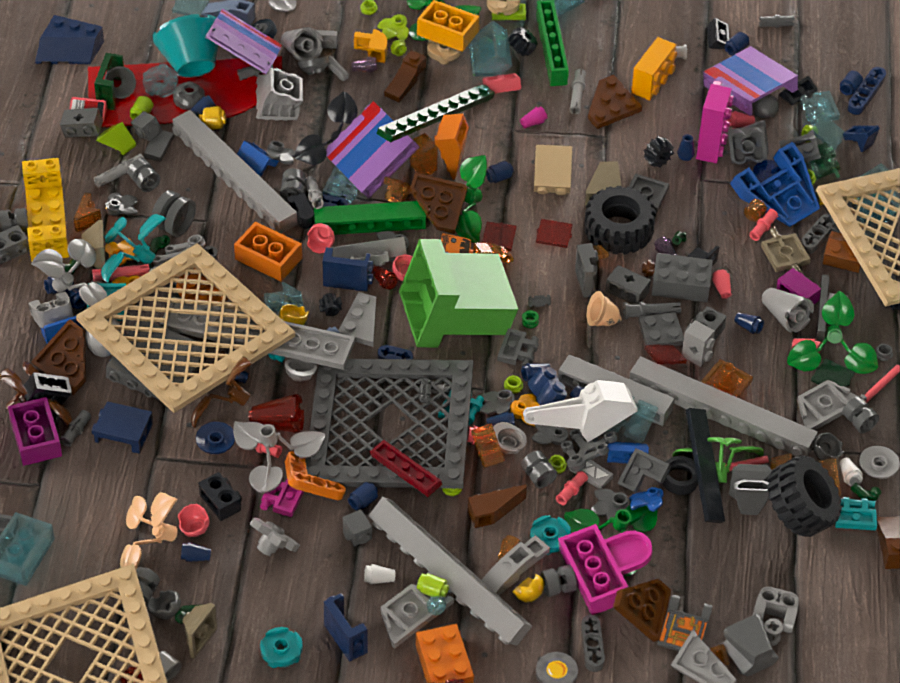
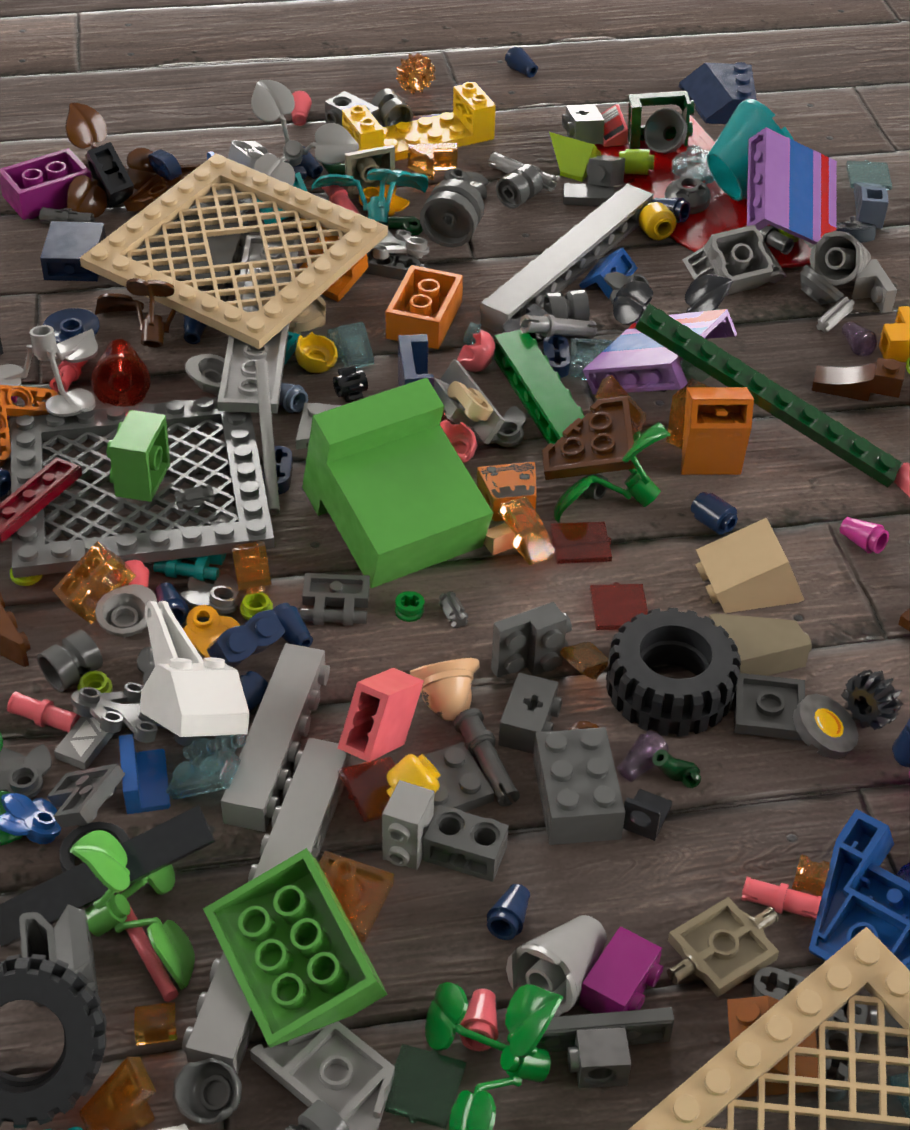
camera: 75 degrees right, 5 degrees down
(48, 355) = (165, 164): none -> dark blue beam
(297, 235) = (472, 329): none -> clear light blue plate
(373, 345) = (267, 437): none -> light grey piece
(390, 245) = (472, 400): none -> tan plate
(392, 404) = (139, 455): none -> bright green brick
(494, 372) = (251, 567): none -> clear orange brick
(630, 334) = (380, 714): none -> coral brick
(667, 175) = (825, 725): none -> flat silver tile
(671, 335) = (414, 771): none -> yellow head
(722, 283) = (594, 853): coral cone -> none
(768, 393) = (294, 950): none -> bright green slope

